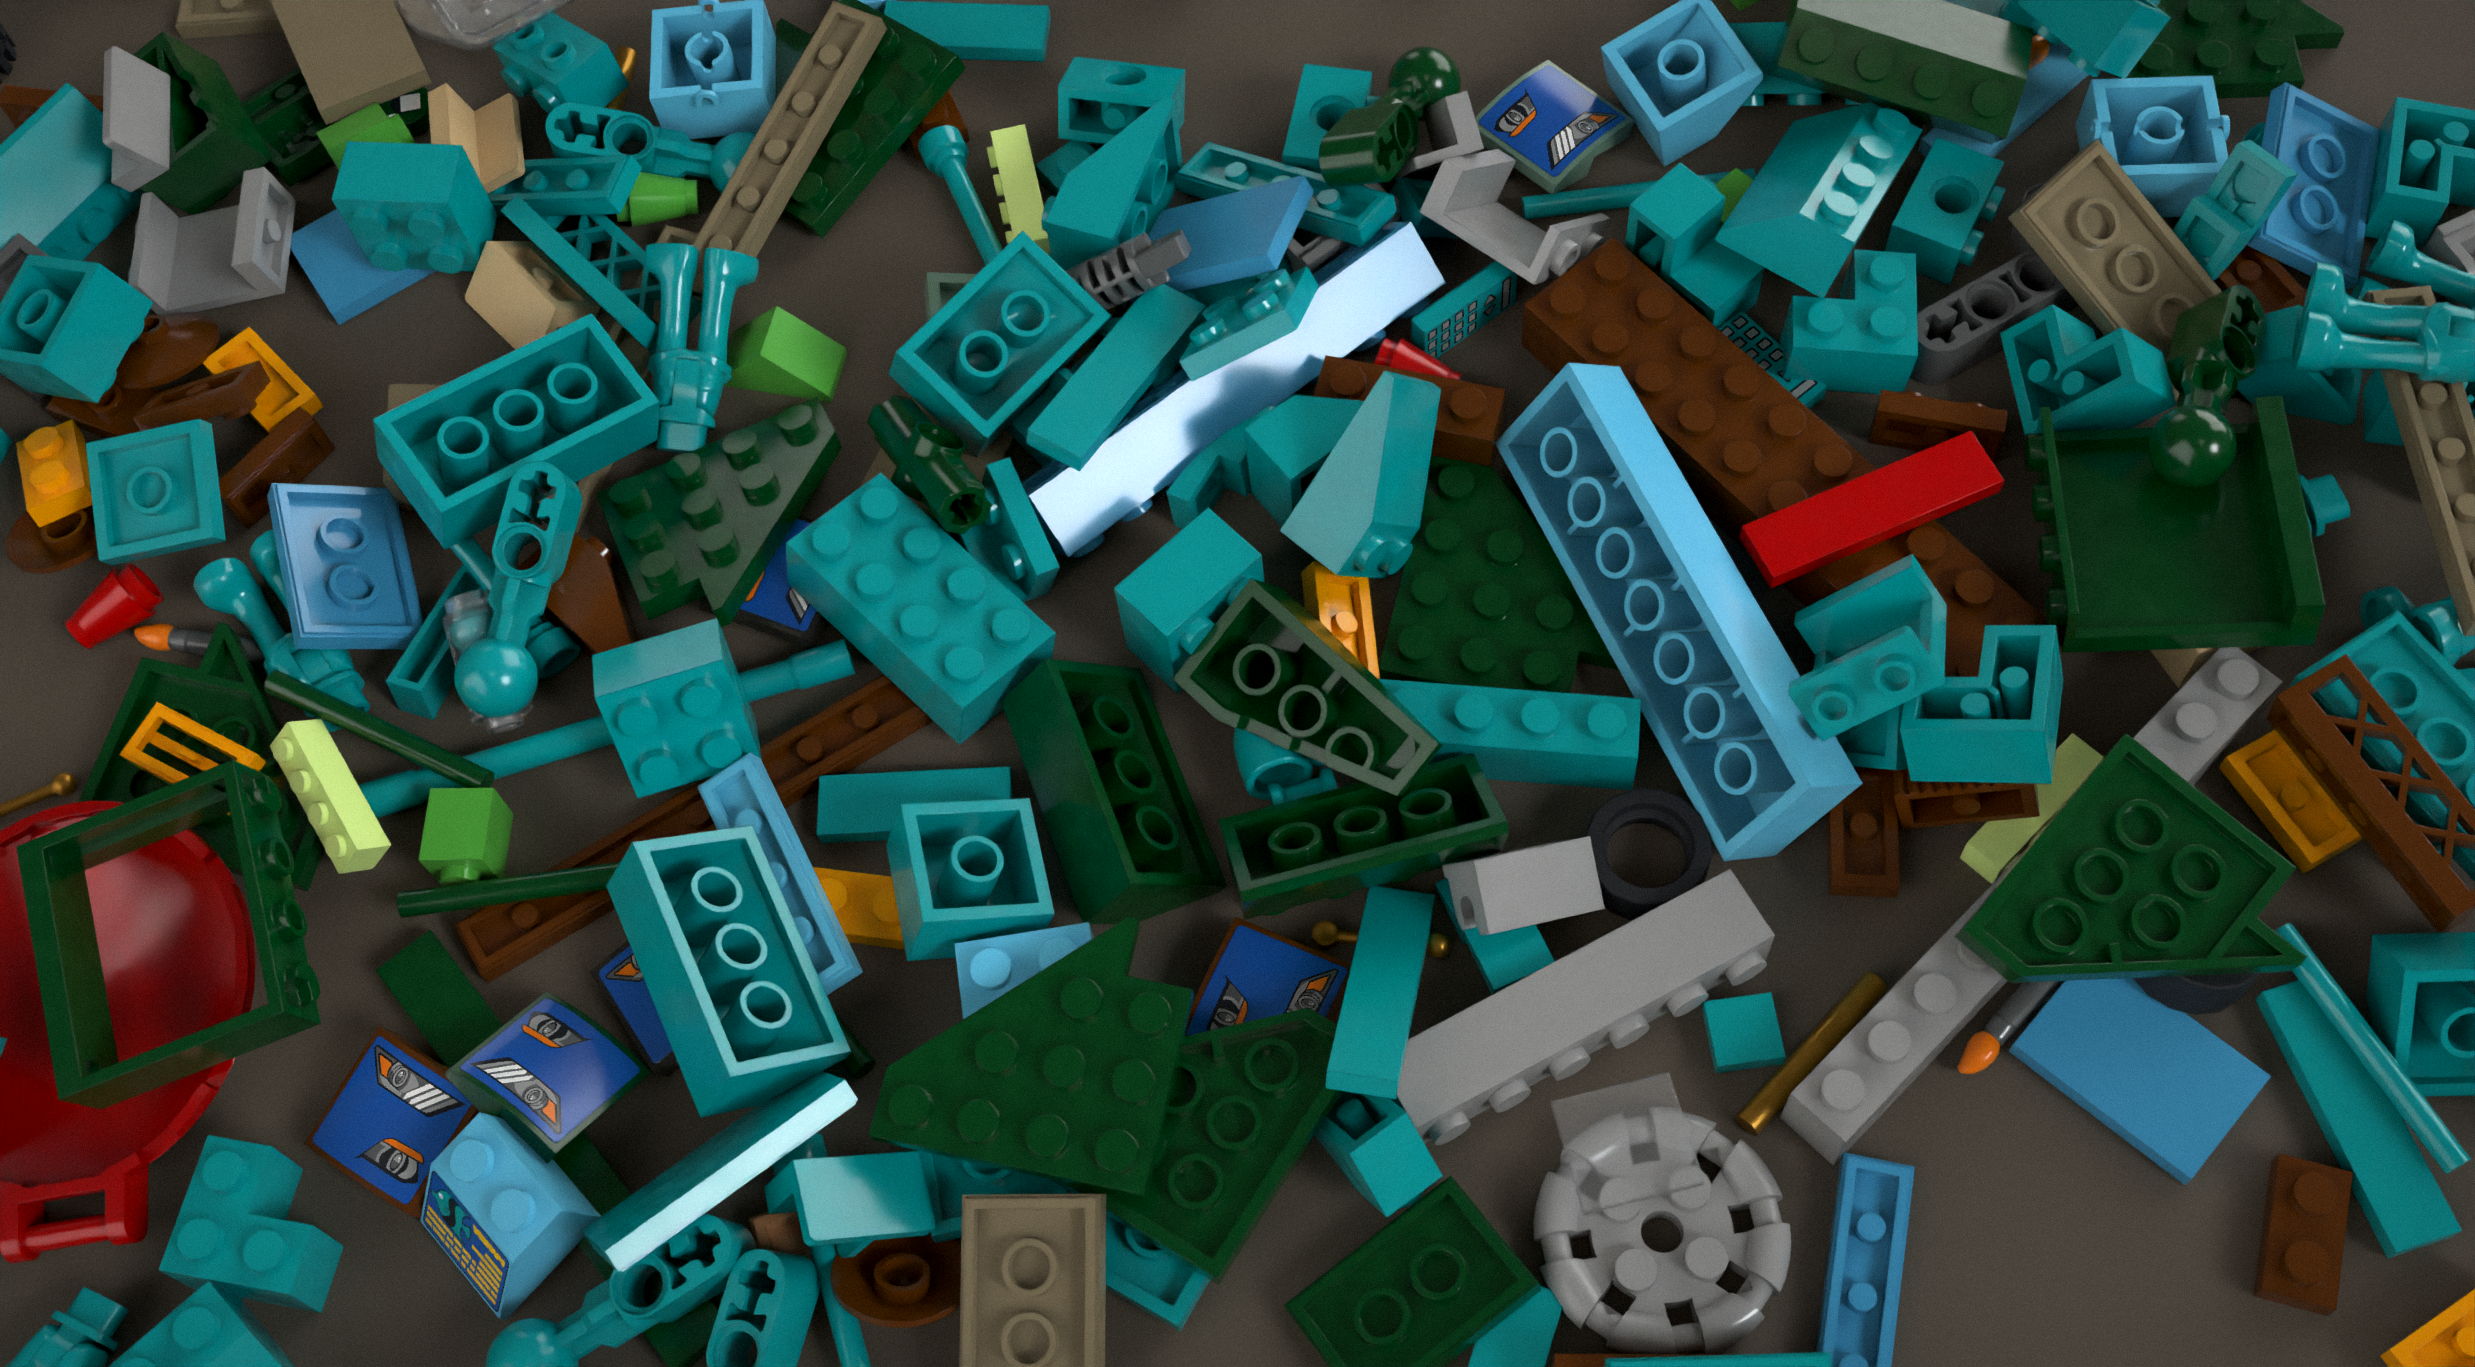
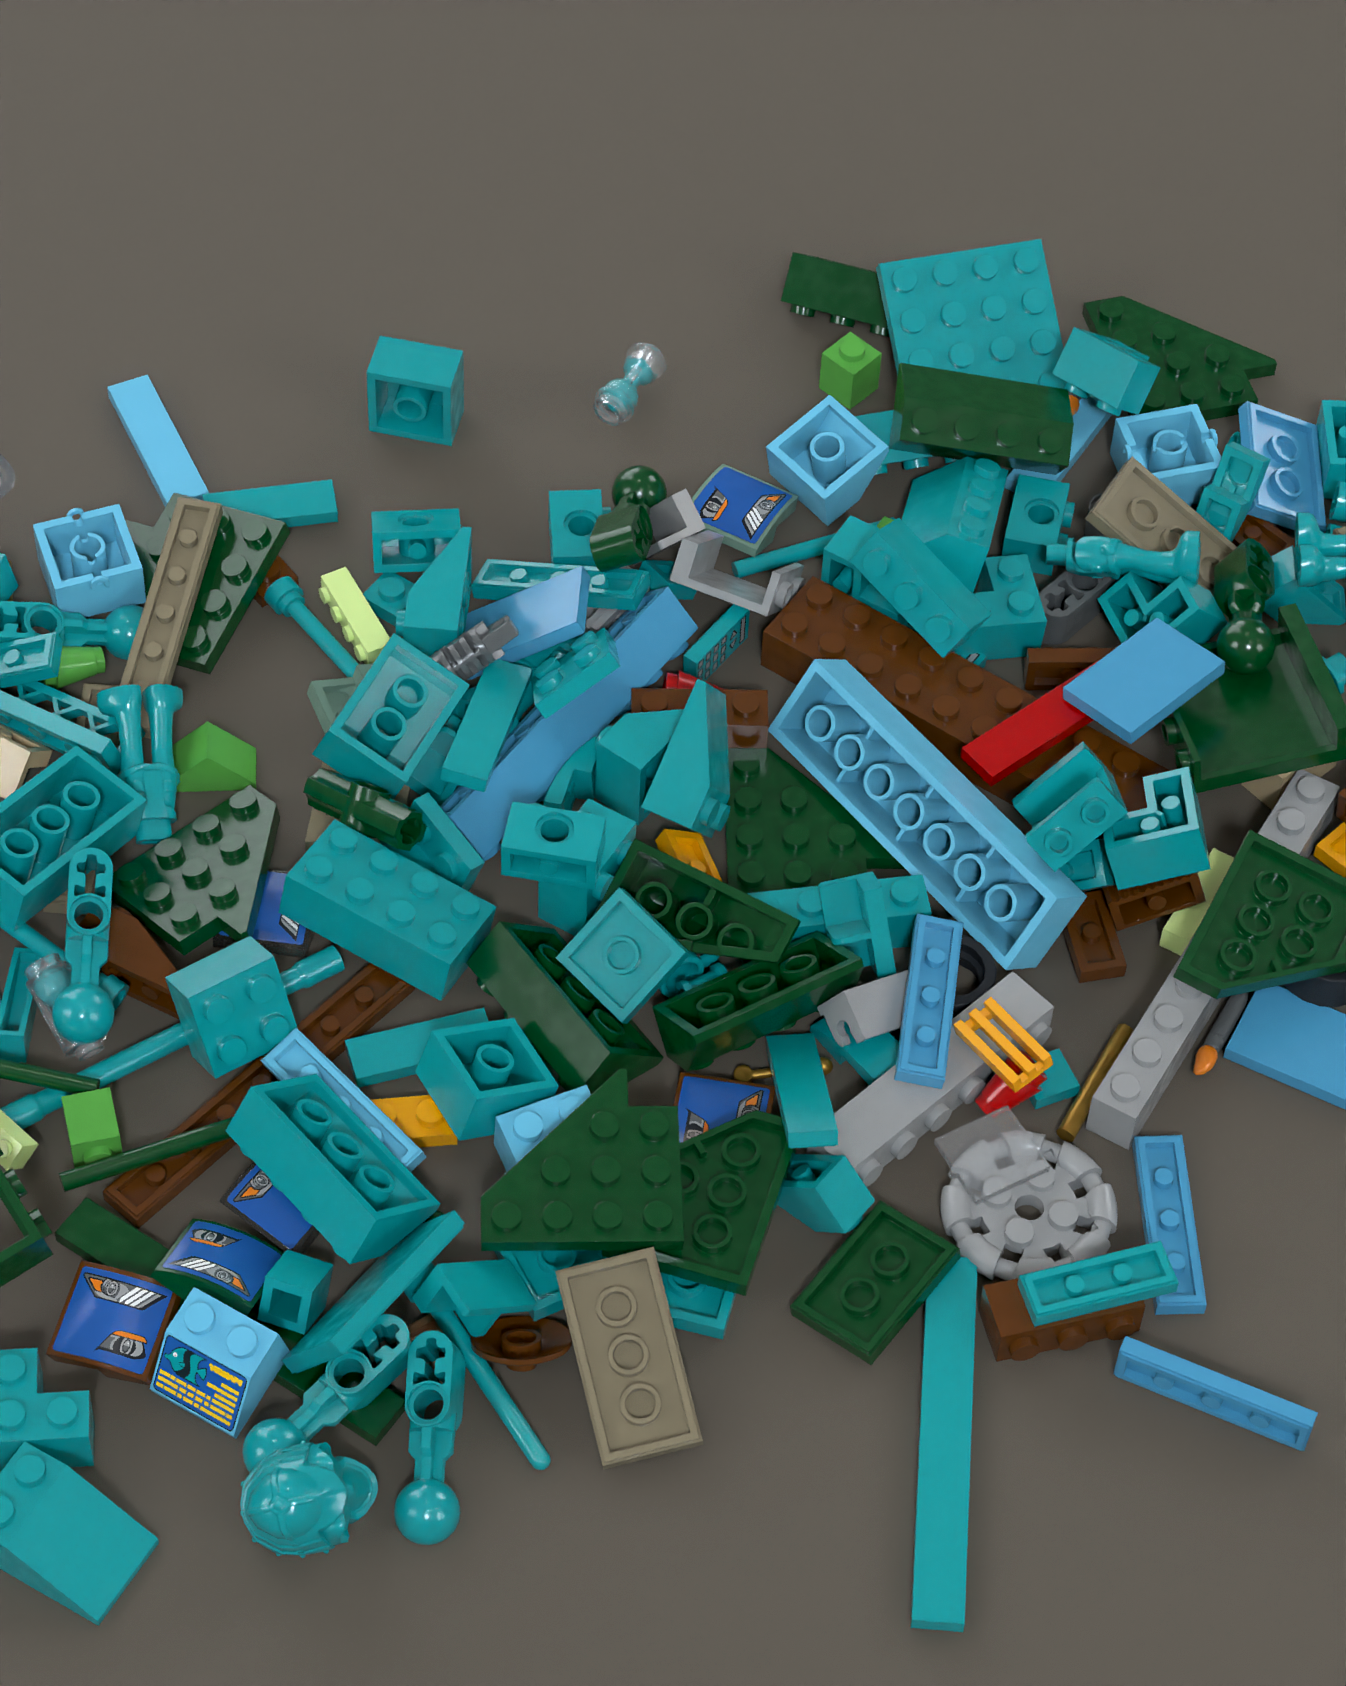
camera: 25 degrees left, 10 degrees down
(631, 1133) = (295, 1291): none -> teal brick
(1150, 599) = (553, 845): none -> teal brick
(1198, 738) = (623, 955): none -> teal plate
(1526, 756) = (858, 920): none -> teal panel
(1596, 895) = (929, 1001): none -> dark azure tile
(1657, 939) = (981, 1020): none -> light orange tile
(1686, 1038) = (999, 1094): none -> red cone
(1744, 282) = (920, 587): none -> teal brick
(2027, 475) = (1143, 680): none -> dark azure tile
(2031, 280) = (1112, 558): none -> teal piece

